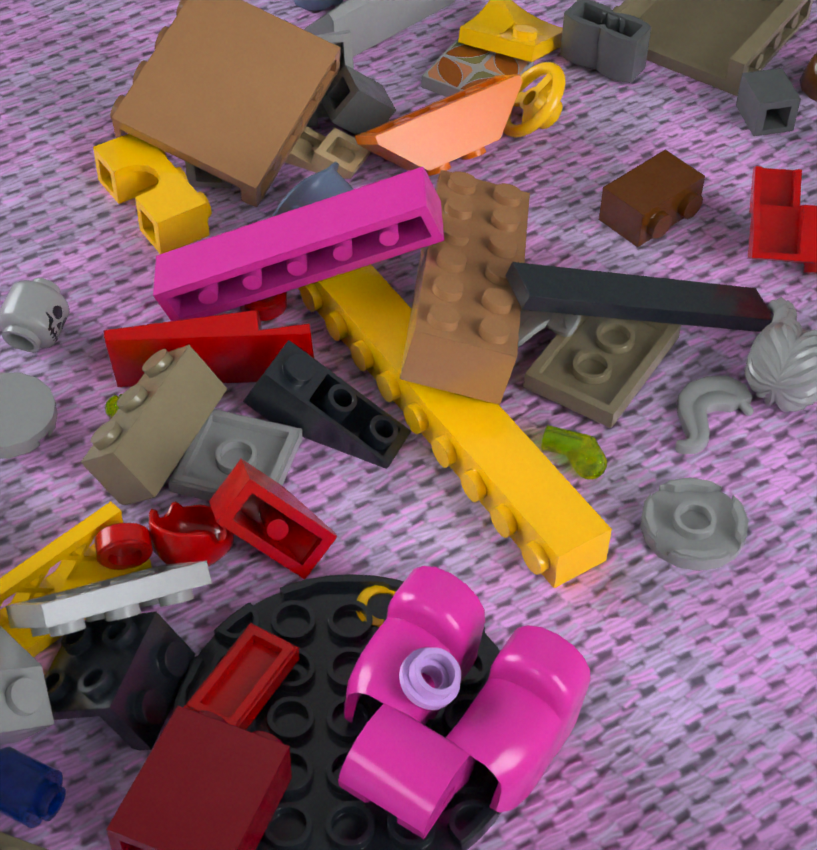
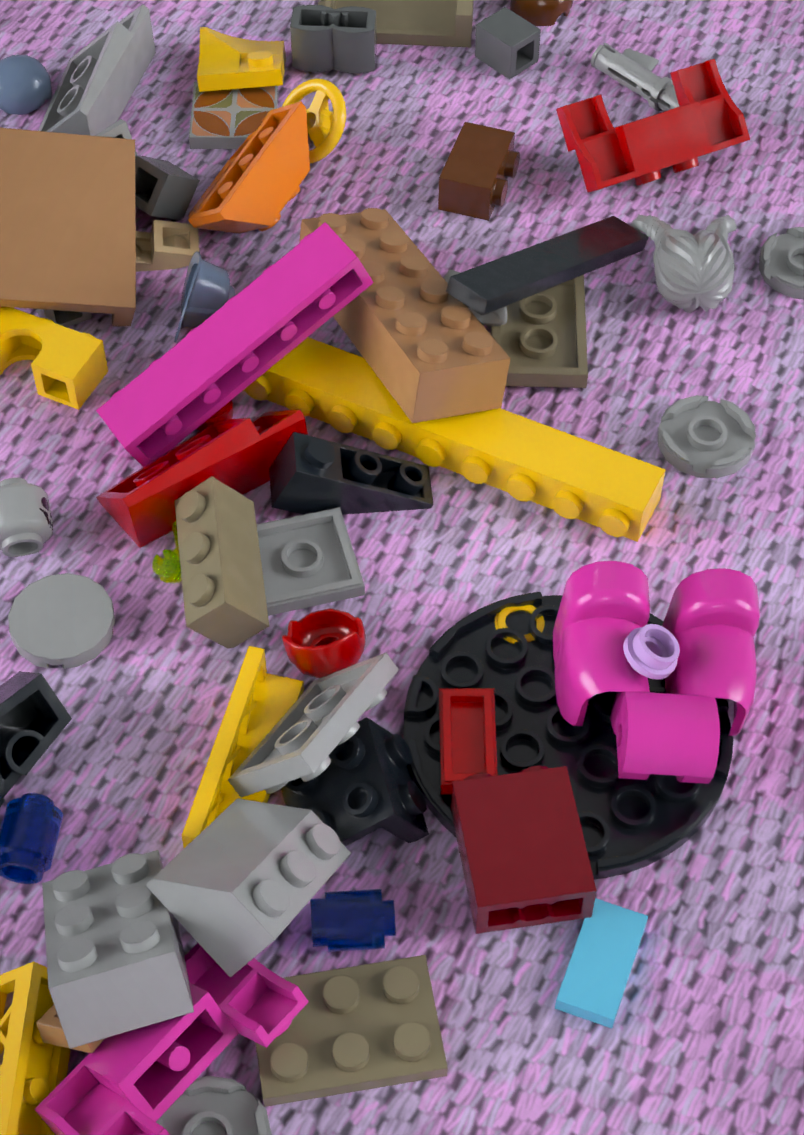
camera: 30 degrees left, 5 degrees up
(123, 546) = (283, 679): red tile -> none
(271, 519) = (385, 594): red slope -> none
(580, 449) = (578, 417): clear neon green arm -> none
(704, 397) = (635, 333): light grey piece -> none

